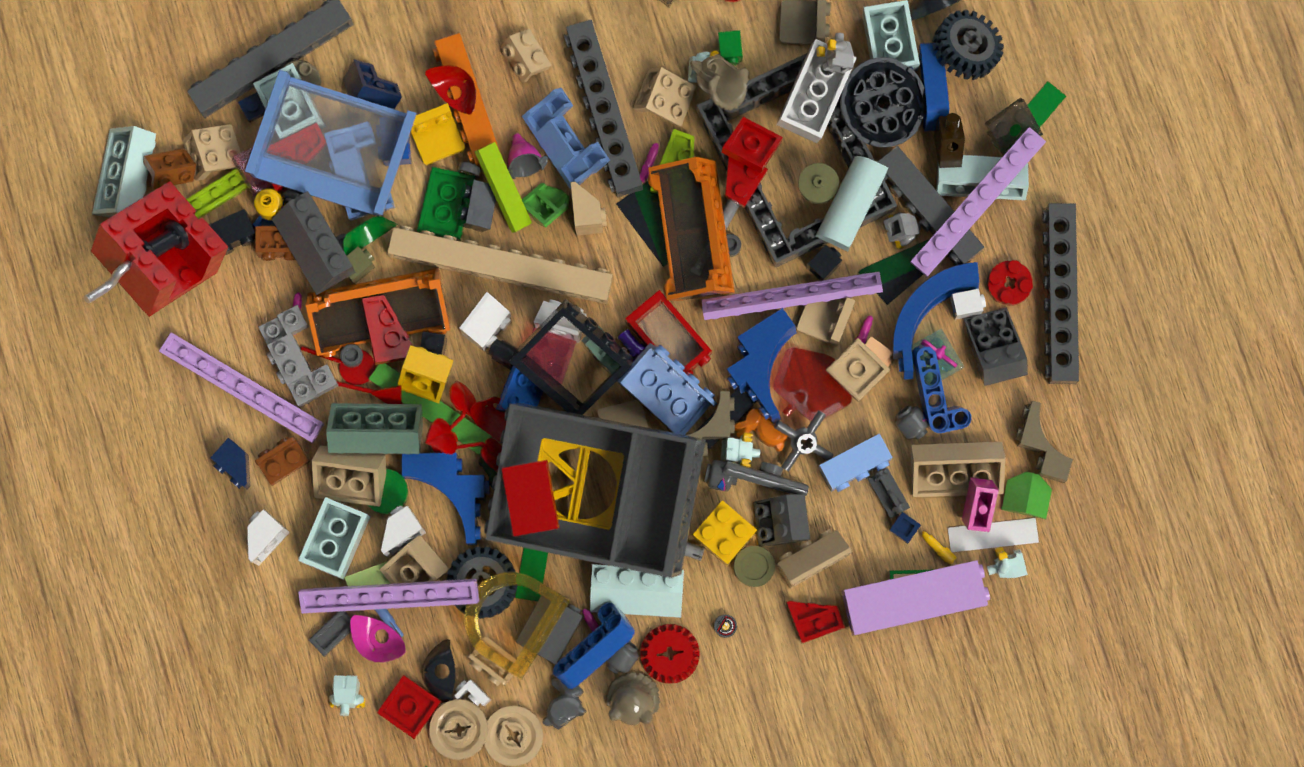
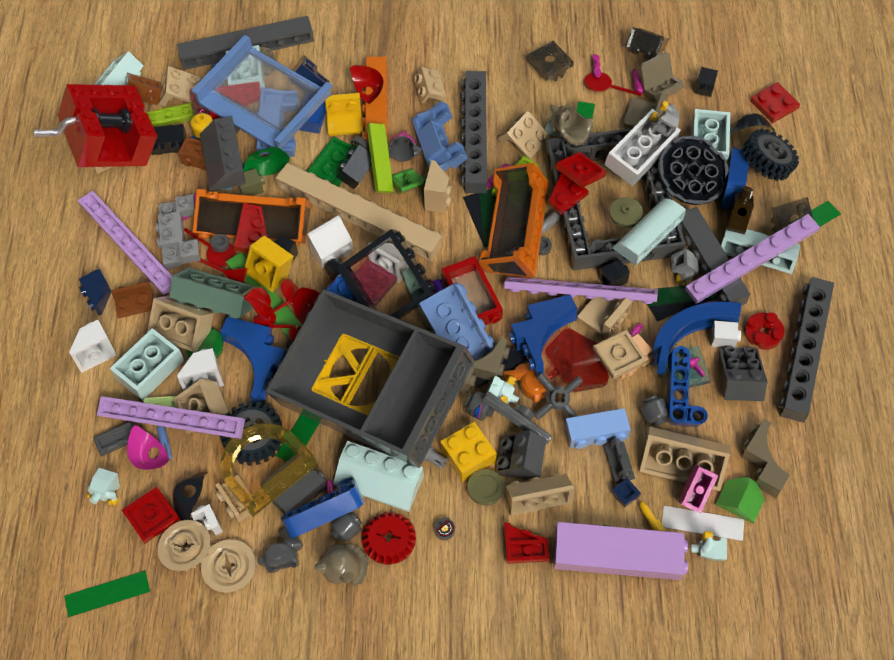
camera: 15 degrees right, 20 degrees down
(530, 498) = (313, 365): red tile -> none

